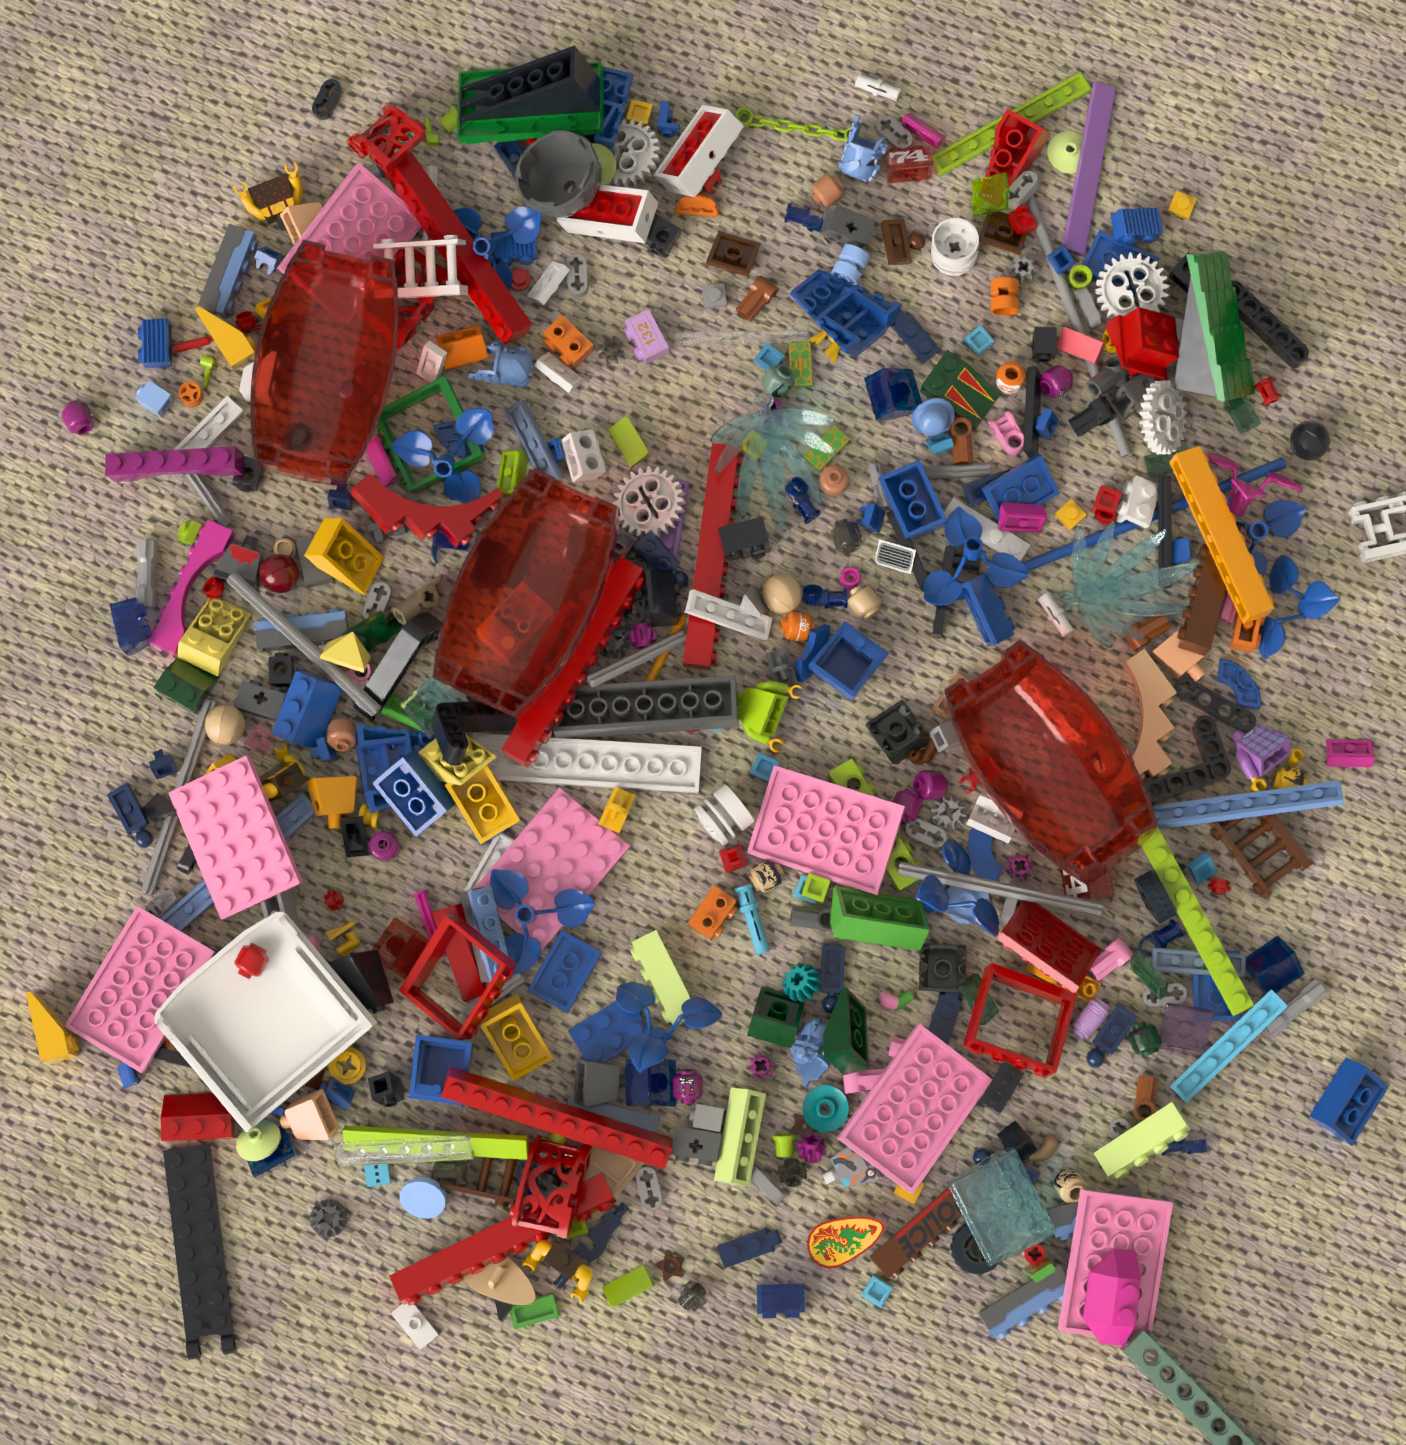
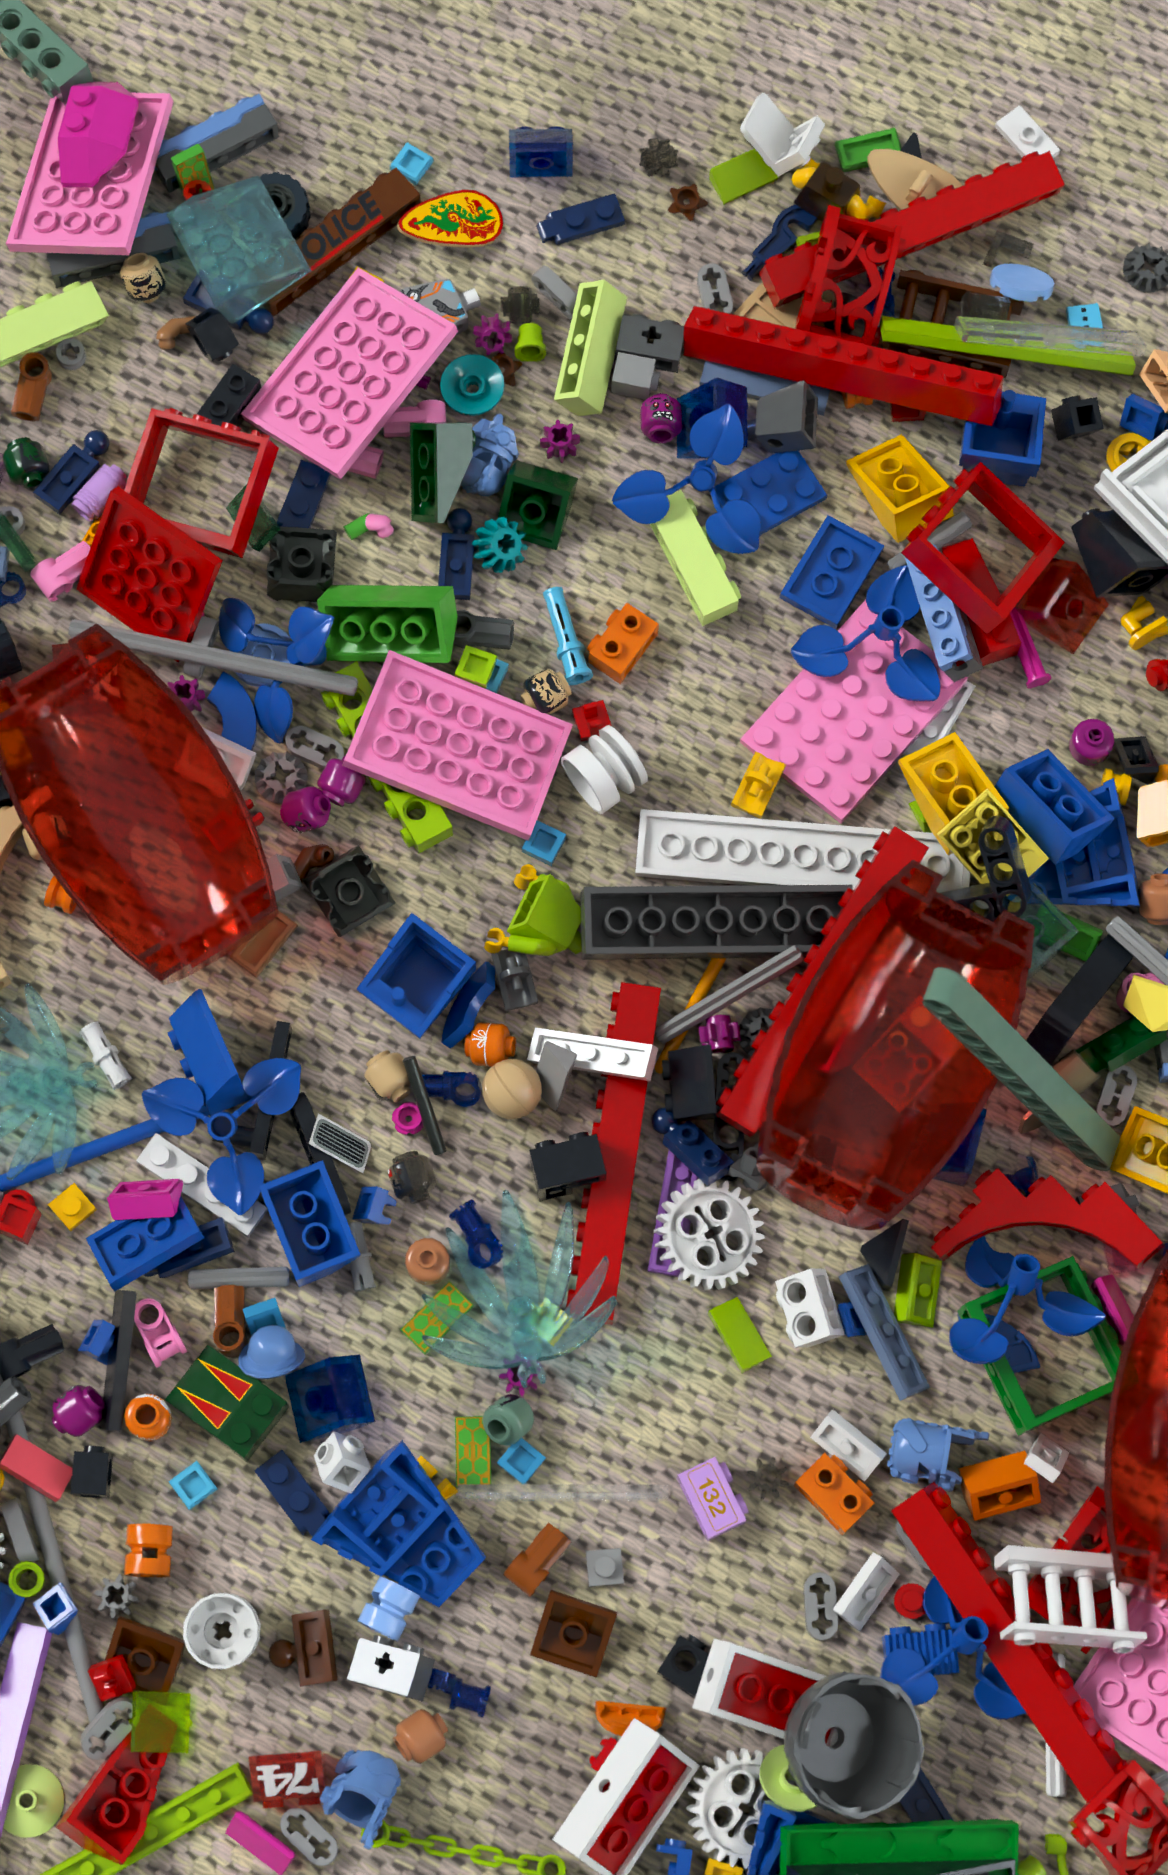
camera: 175 degrees right, 5 degrees down
(431, 1231) = (1010, 244): none -> clear smoke tile
(445, 576) = (1020, 1068): none -> sand green beam
(600, 1309) = (777, 139): none -> white bracket
(840, 582) = (424, 1105): none -> pearl dark grey bar
(884, 350) = (342, 1462): none -> white brick

